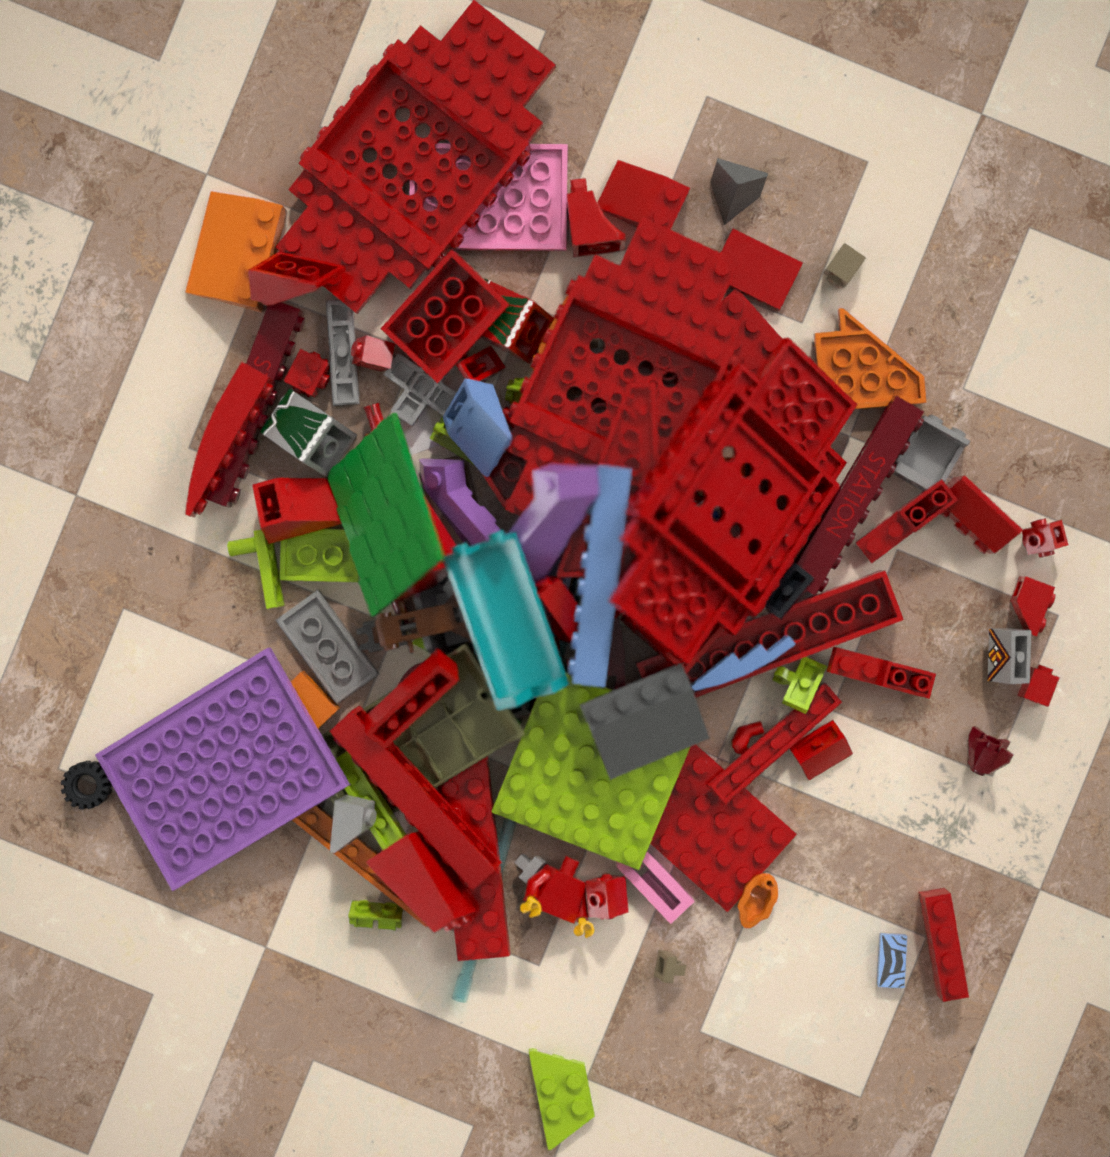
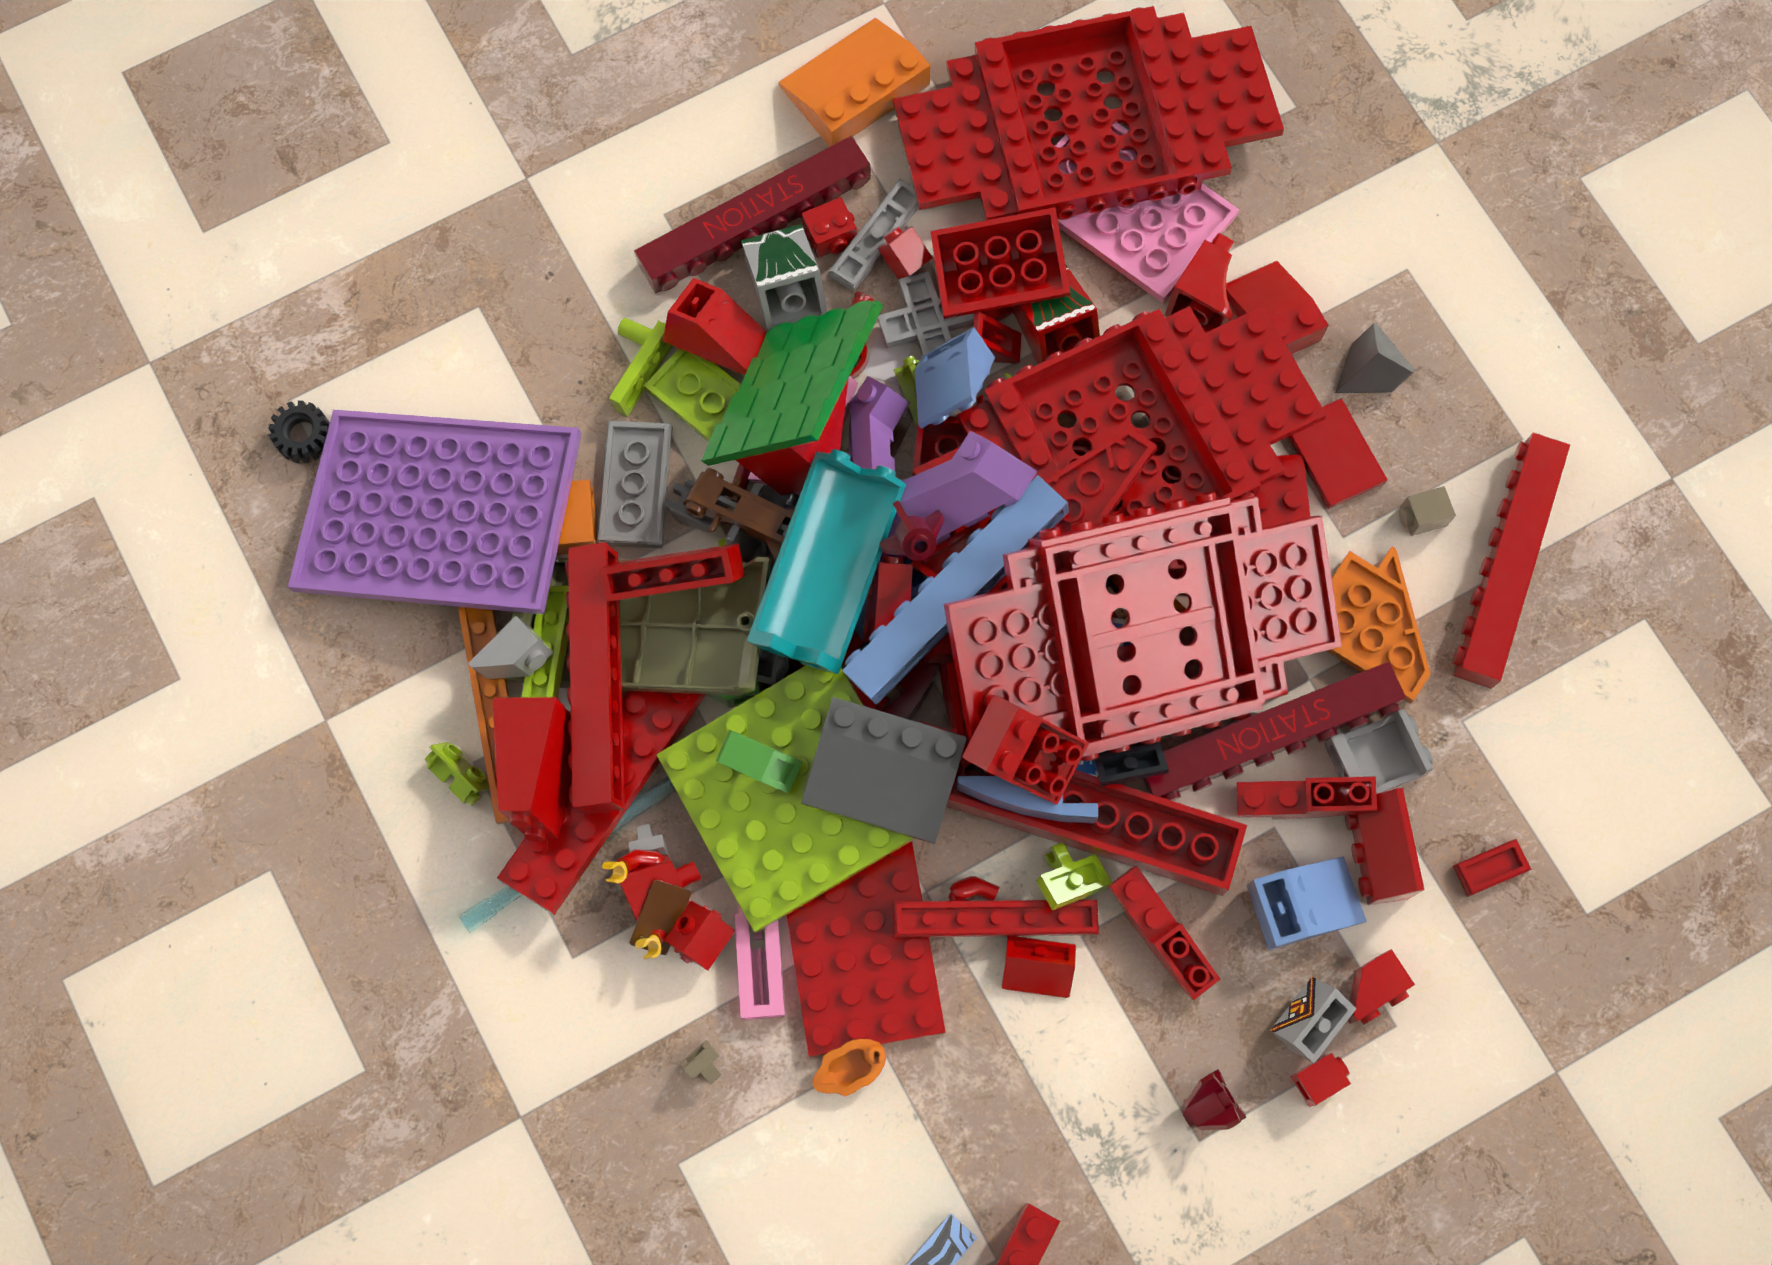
camera: 40 degrees right, 15 degrees down
(224, 431) = (707, 211): red slope -> none
(289, 276) = (882, 125): red slope -> none
(550, 564) = (914, 535): none -> dark red brick
(560, 775) = (759, 761): none -> bright green slope
(561, 1094) = (481, 1110): lime wing -> none
(573, 902) = (660, 911): none -> reddish brown sticker
(723, 645) = (1025, 749): none -> red slope
(920, 256) = (1511, 560): none -> red brick
(953, 585) = (1305, 902): none -> medium blue slope
(1044, 537) = (1440, 927): red brick -> none
(1047, 471) = (1492, 867): none -> red tile

